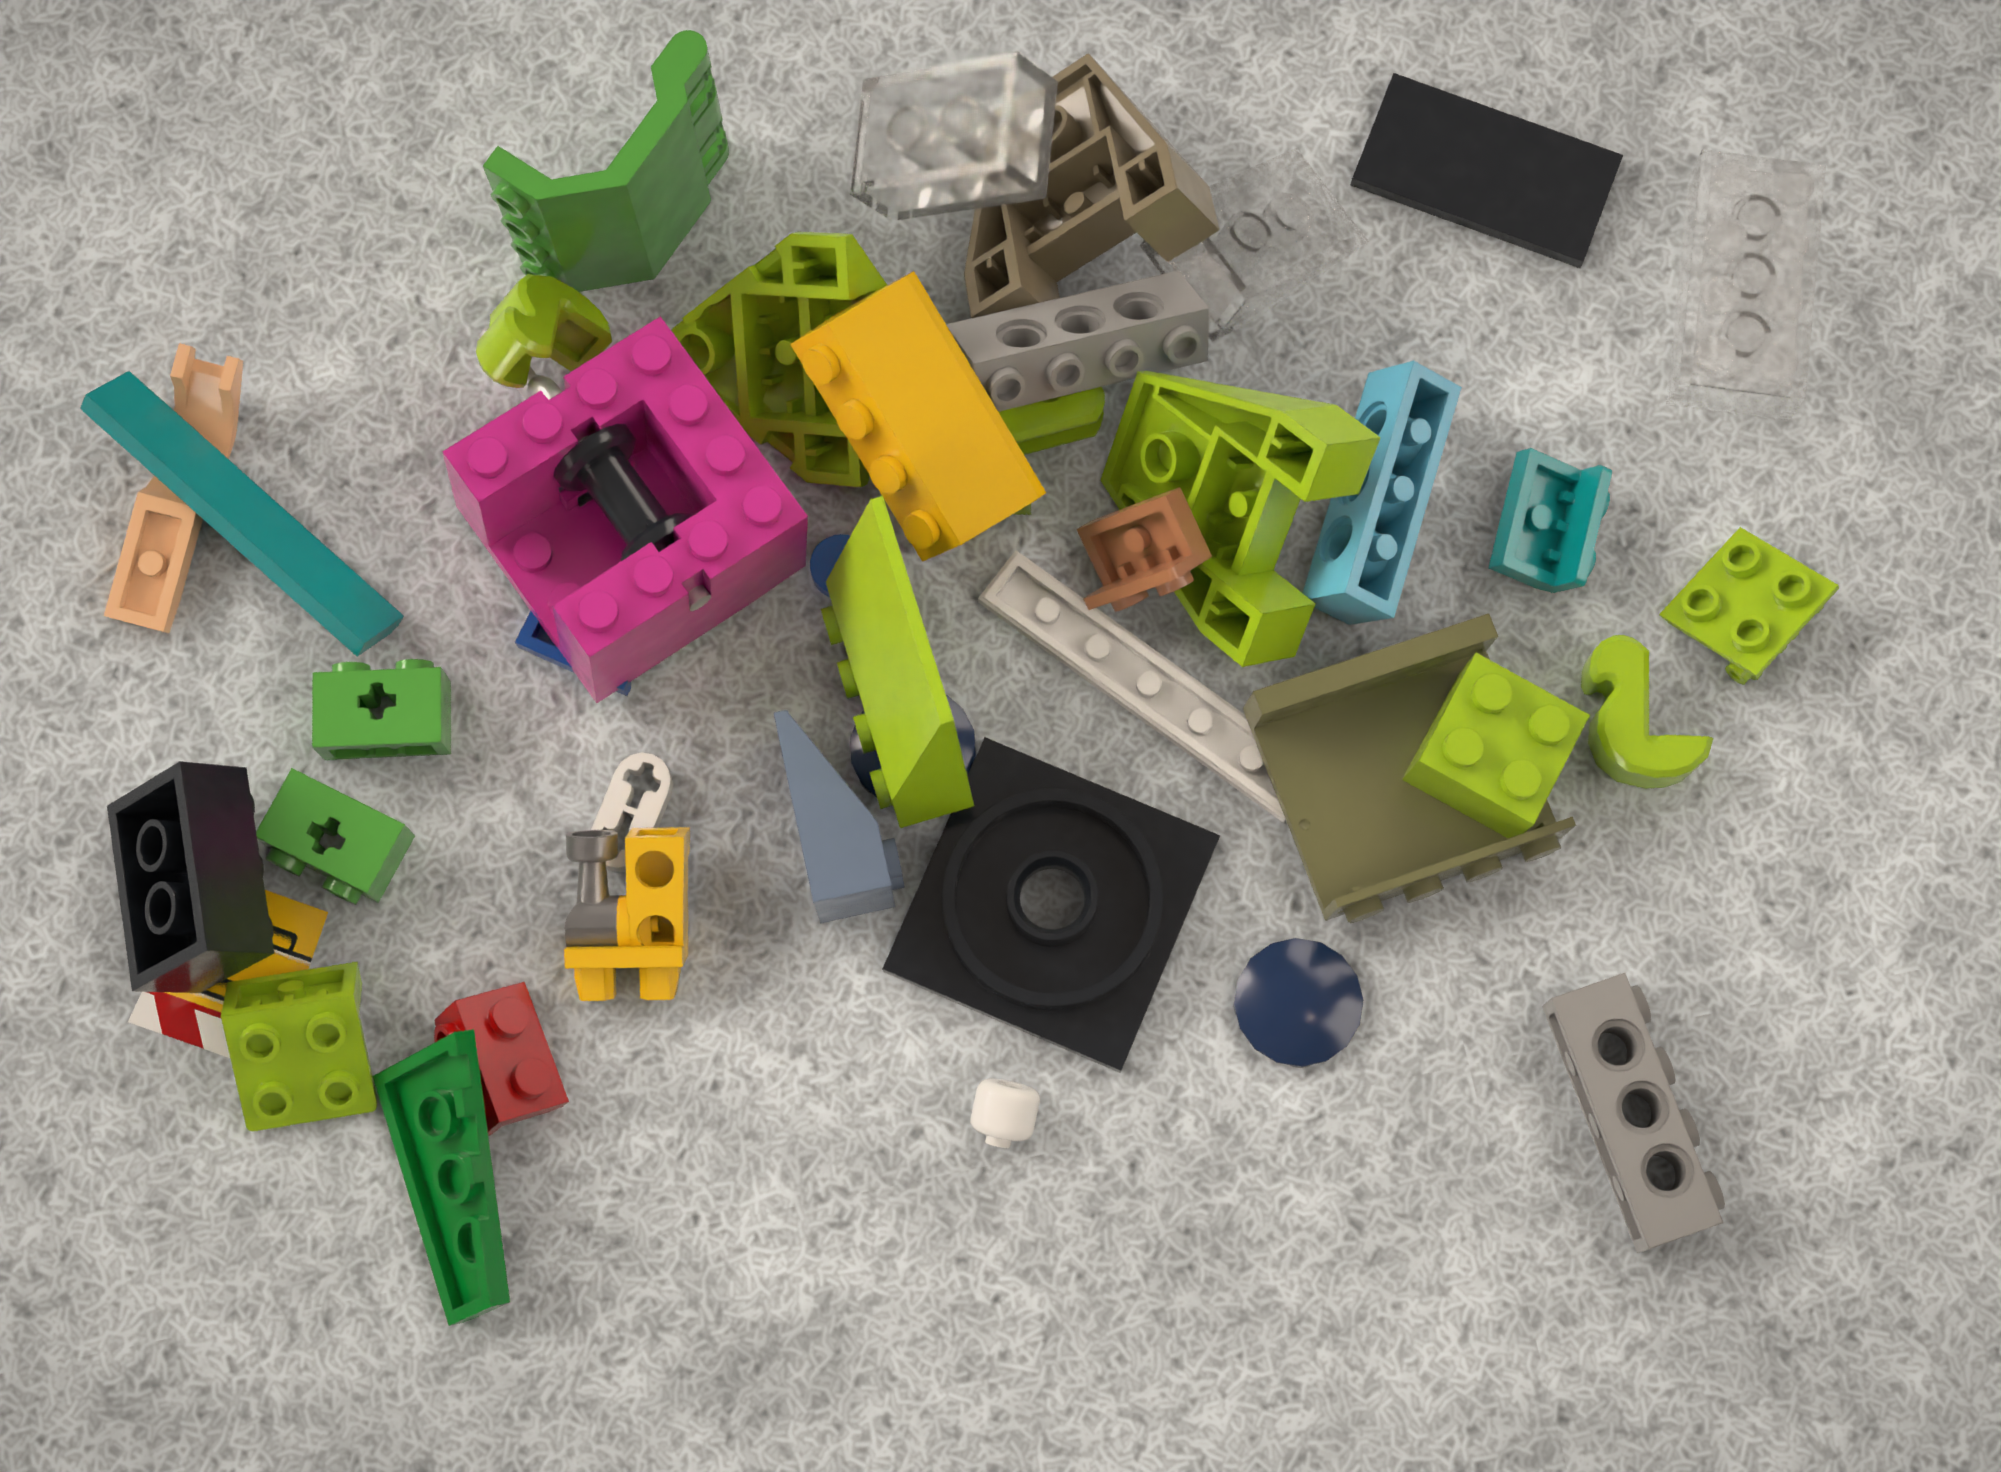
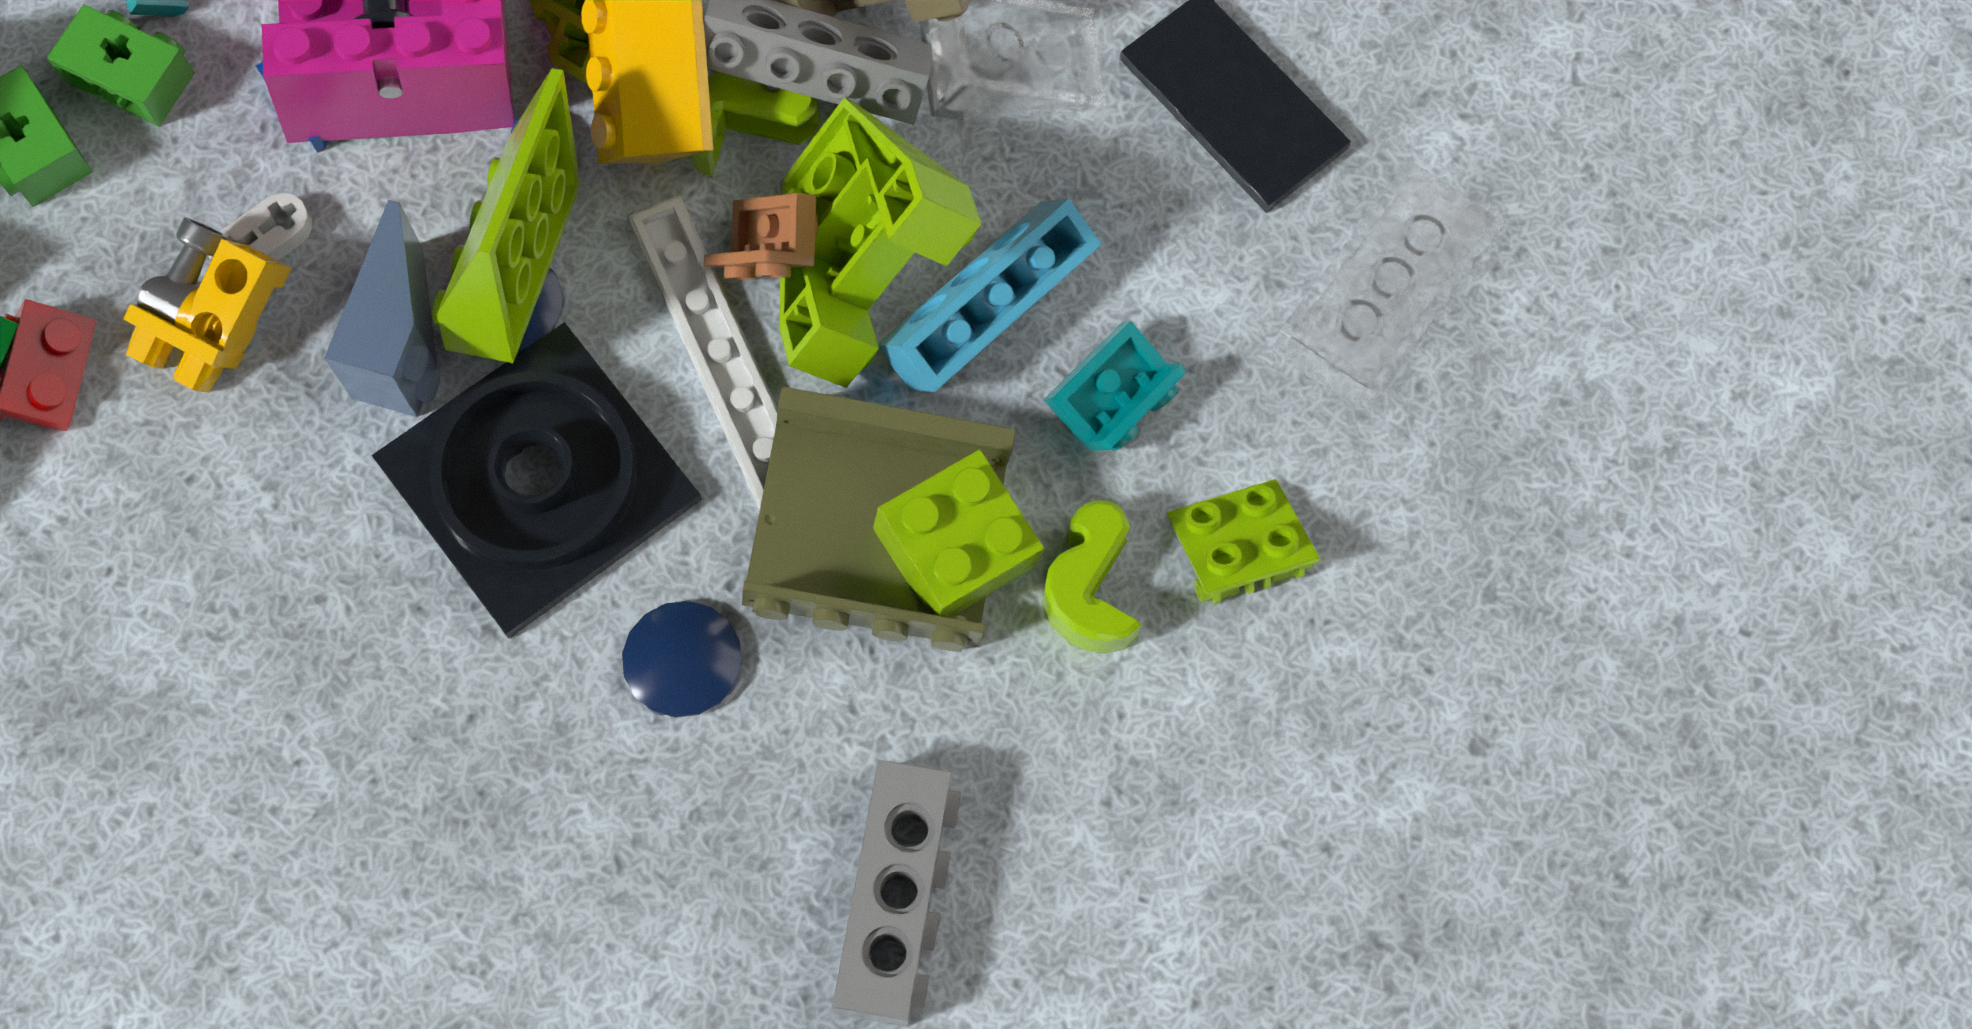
camera: 25 degrees right, 5 degrees down
(1004, 1111) = (395, 617): white piece -> none

